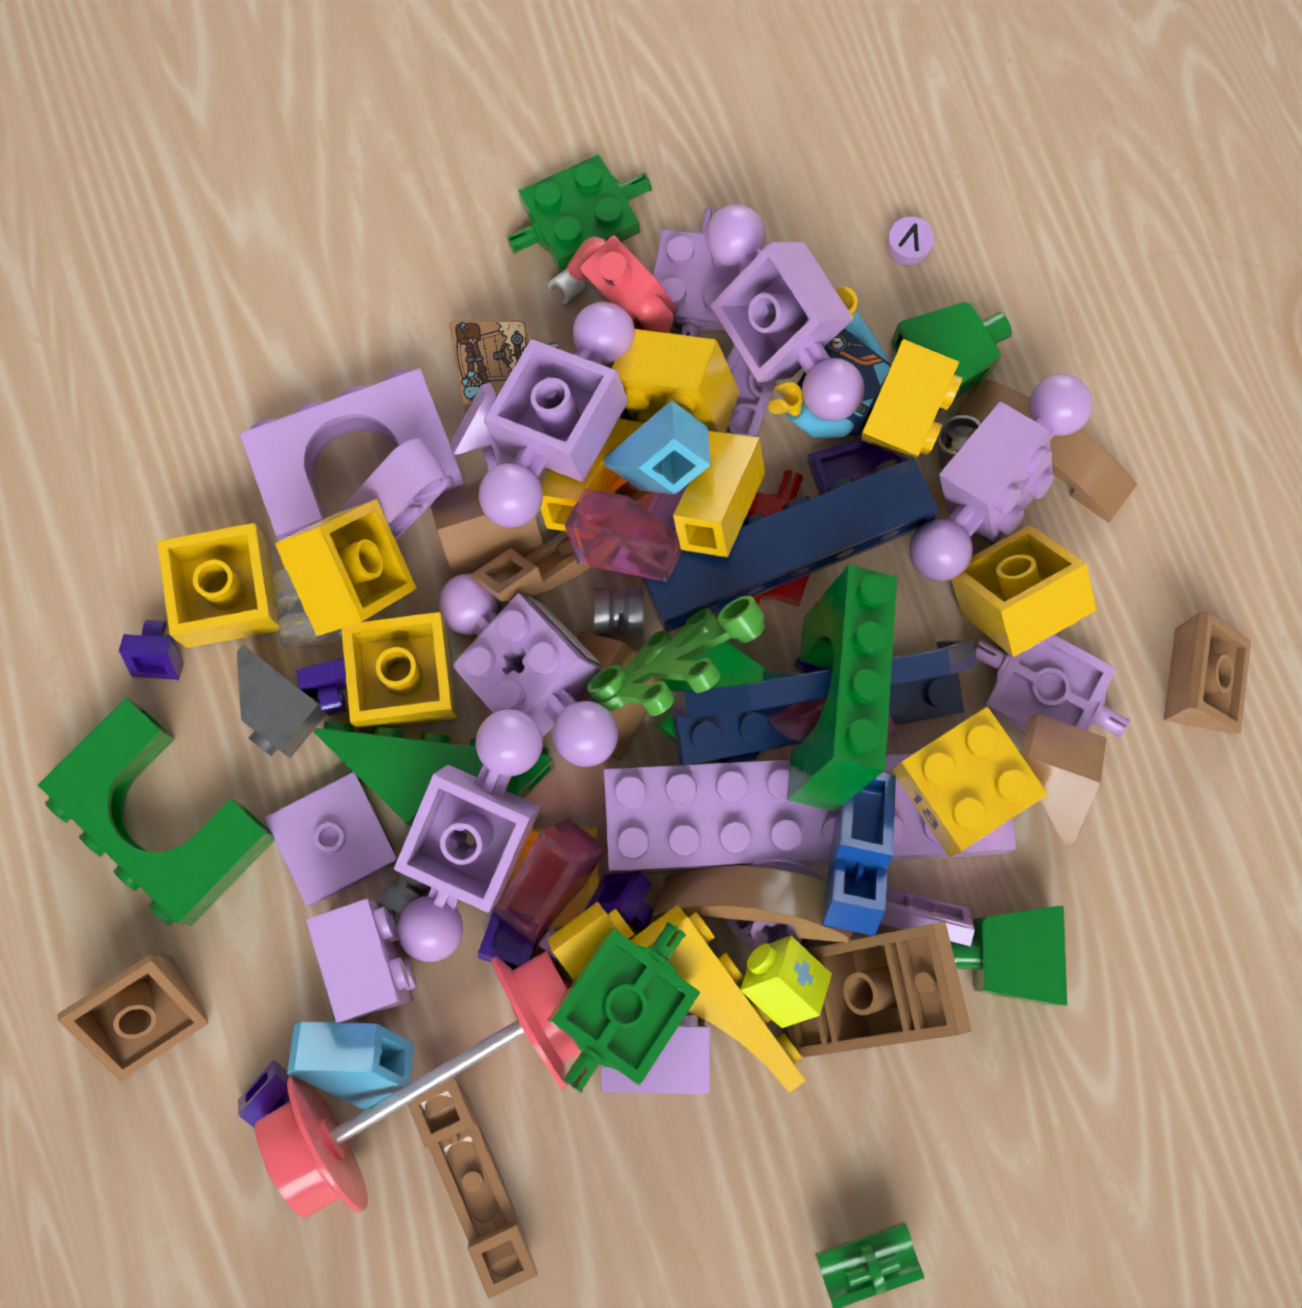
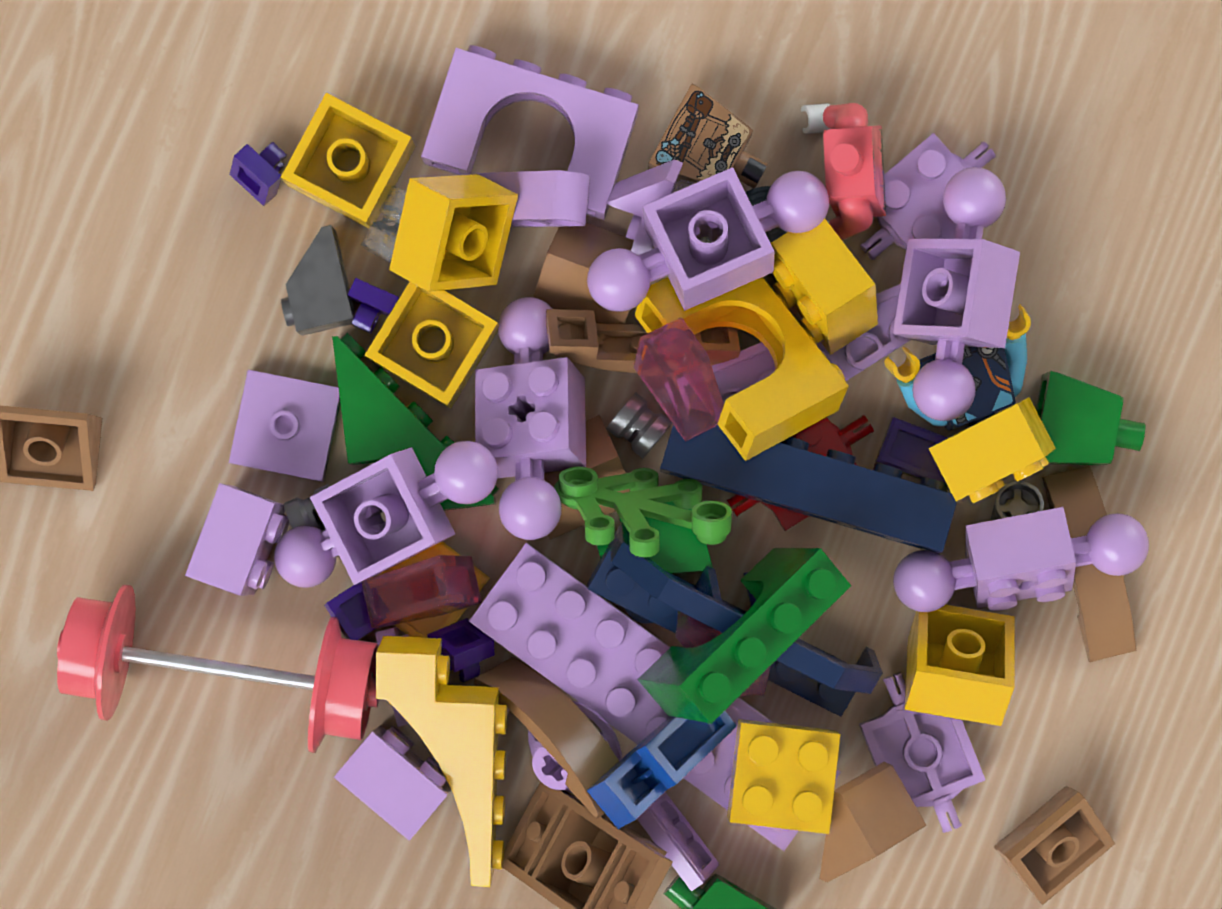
camera: 40 degrees right, 10 degrees up
(92, 792) = (133, 247): green arch -> none
(264, 1094) = (96, 579): dark purple tile -> none
(351, 1060) = (176, 608): medium azure slope -> none
(474, 1187) = (194, 766): medium nougat slope -> none
(564, 630) = (582, 411): white sticker -> none
(578, 206) = (878, 61): green plate -> none
(624, 1006) = (396, 732): green plate -> none
(663, 452) = (764, 340): medium azure slope -> none
(786, 981) = (531, 807): neon yellow brick -> none
(910, 240) = (1130, 303): lavender tile -> none

